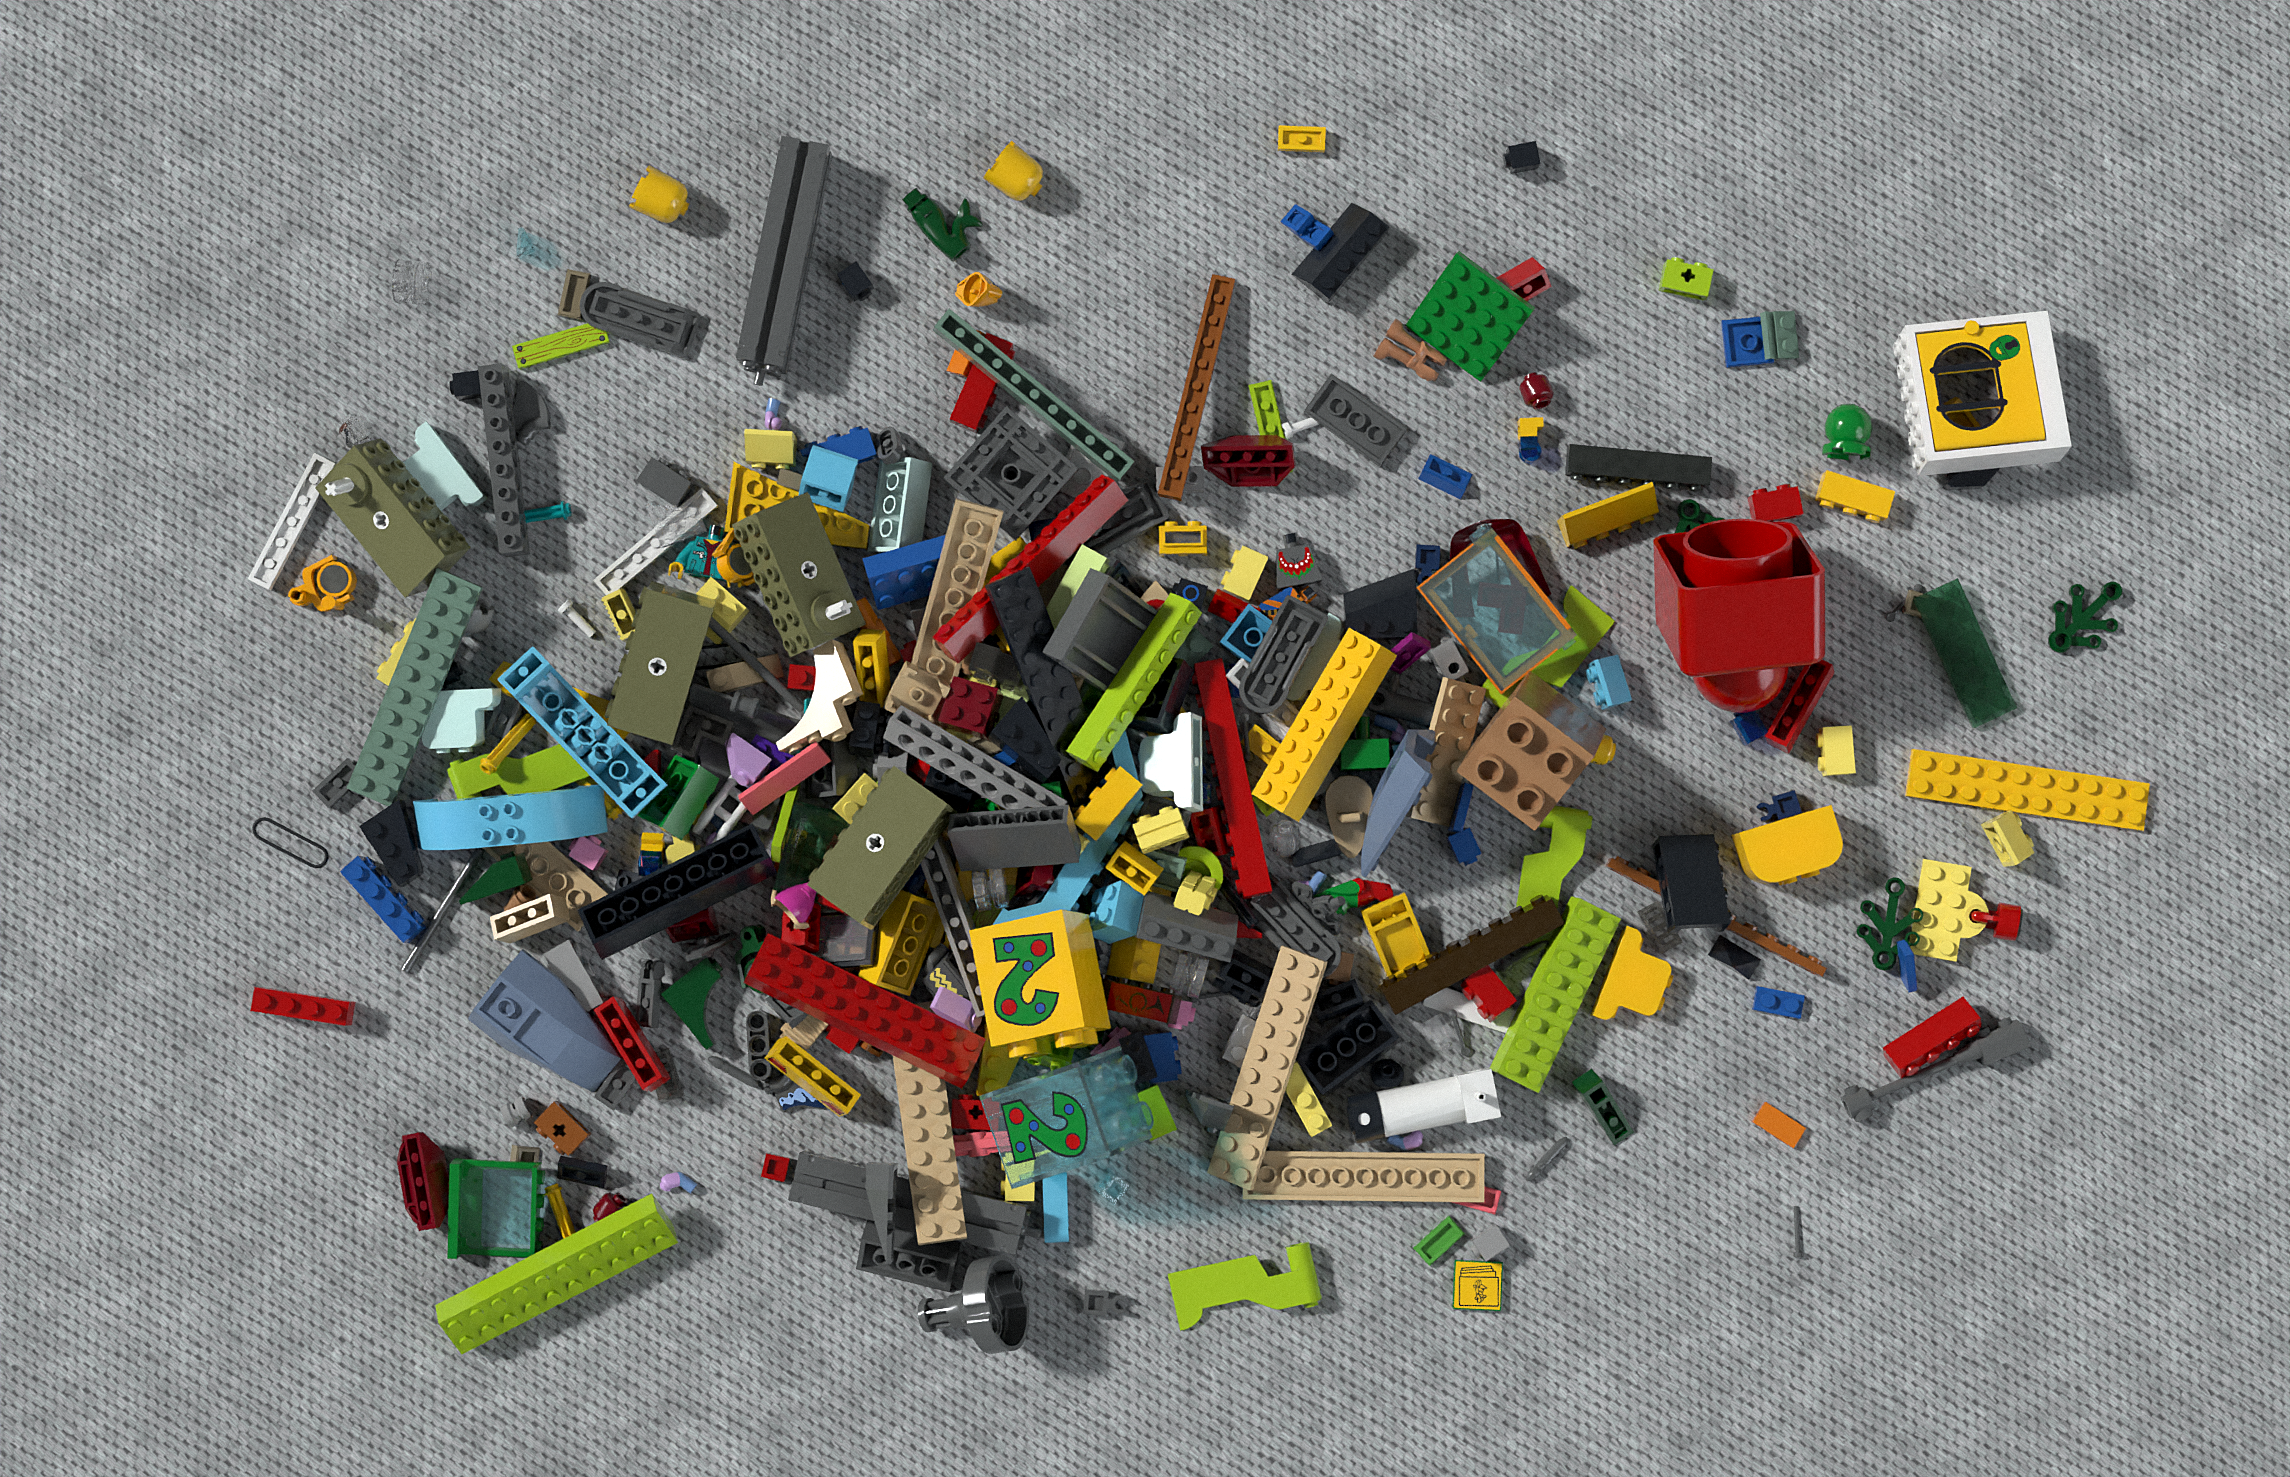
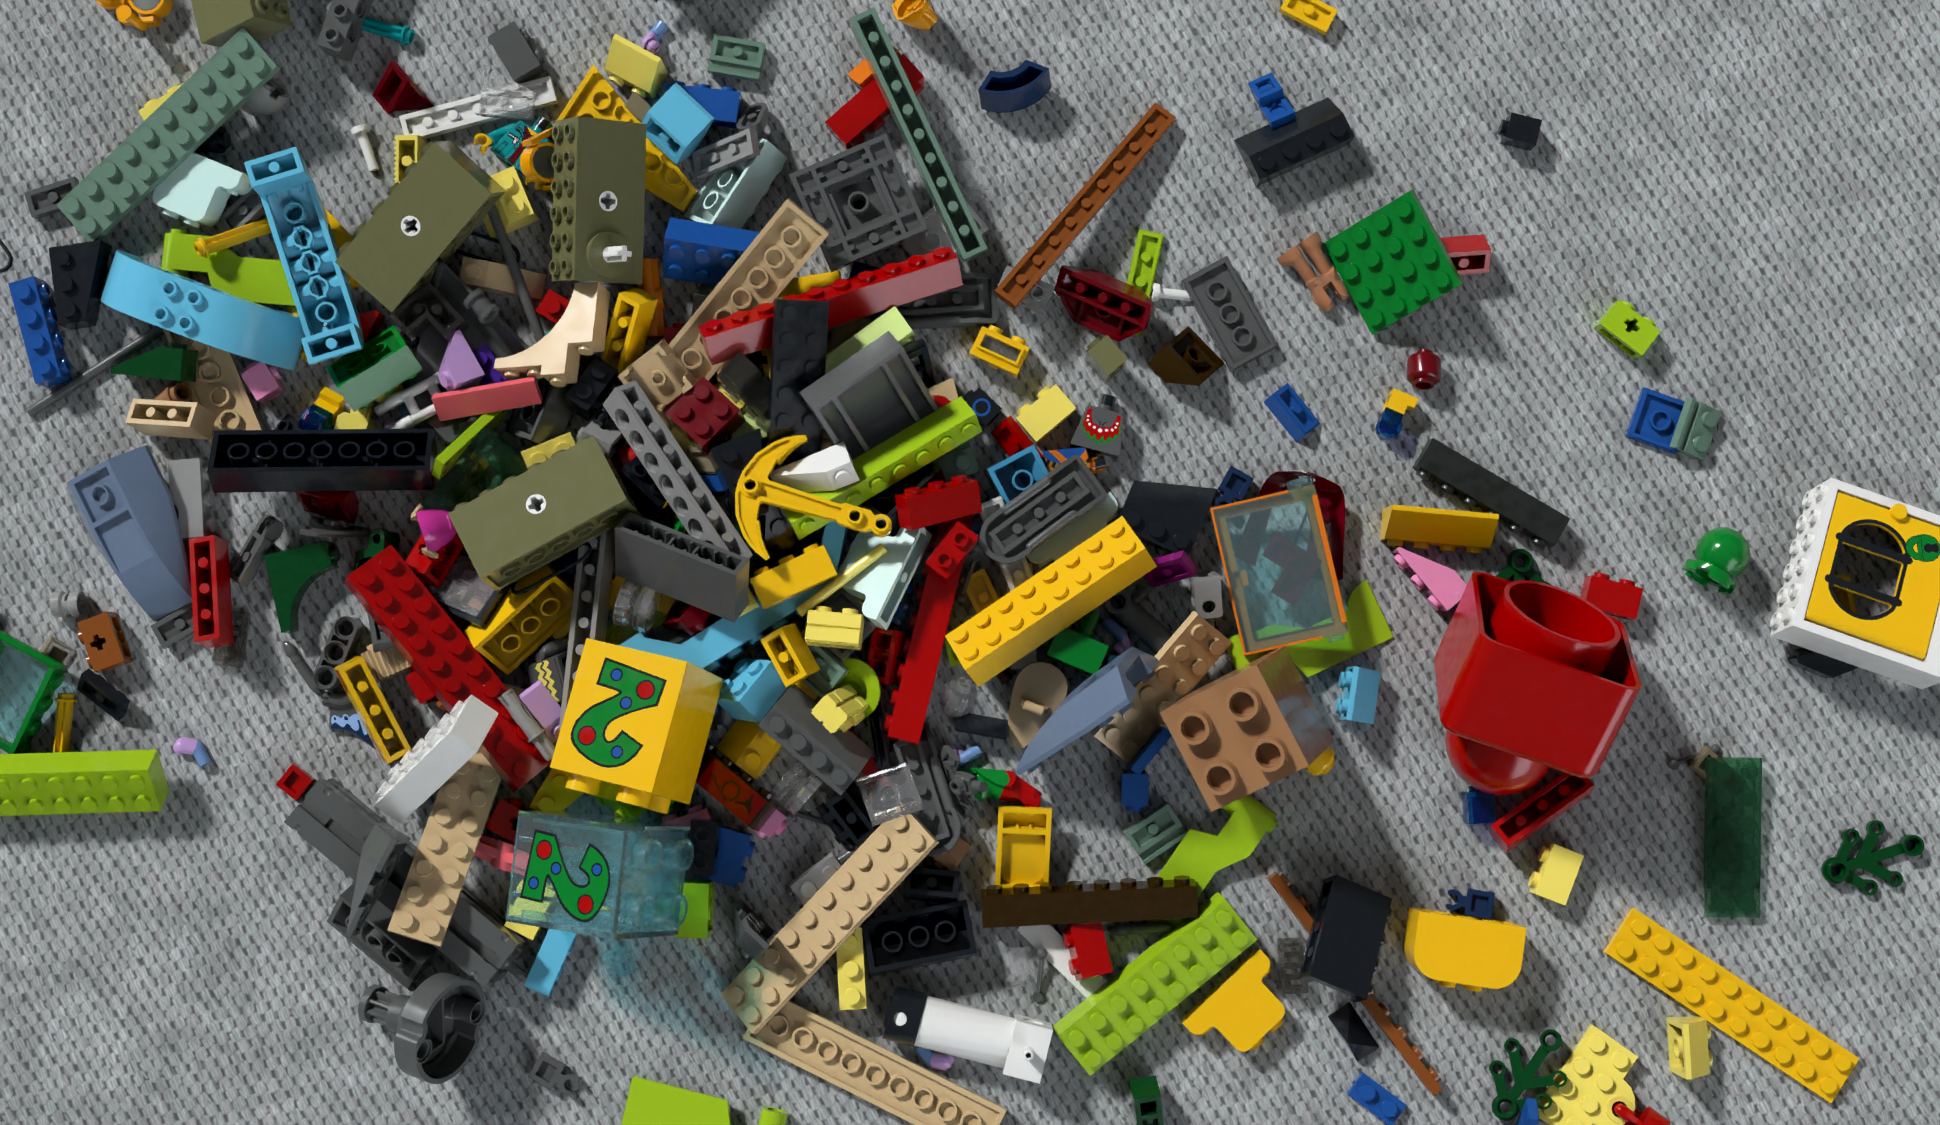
camera: 25 degrees right, 0 degrees up
(583, 560) = (399, 92): none -> dark red slope
(608, 1205) = (112, 740): dark red head -> none
(849, 400) = (736, 58): none -> sand green plate
(880, 483) = (726, 153): none -> light grey plate
(889, 1088) = (435, 758): none -> white brick
(912, 894) = (553, 574): none -> black piece
(950, 1025) = (527, 723): none -> light grey axle
(1076, 741) = (775, 494): none -> yellow piece
(1087, 709) = (820, 471): none -> white slope
(1092, 317) = (1015, 88): none -> dark blue brick
(1146, 788) = (841, 580): none -> light yellow piece
(1195, 687) = (938, 502): none -> red brick
(1224, 722) = (951, 552): none -> red brick
(1268, 942) = (889, 794): none -> clear tile
(1272, 505) = (1105, 358): none -> olive brick
(1339, 475) = (1185, 360): none -> dark brown slope
(1387, 1074) = (947, 981): black piece -> none
(1497, 872) = (1155, 833): none -> sand green plate
(1628, 558) = (1438, 581): none -> bright pink slope
(1854, 496) = (1695, 626): yellow brick -> none

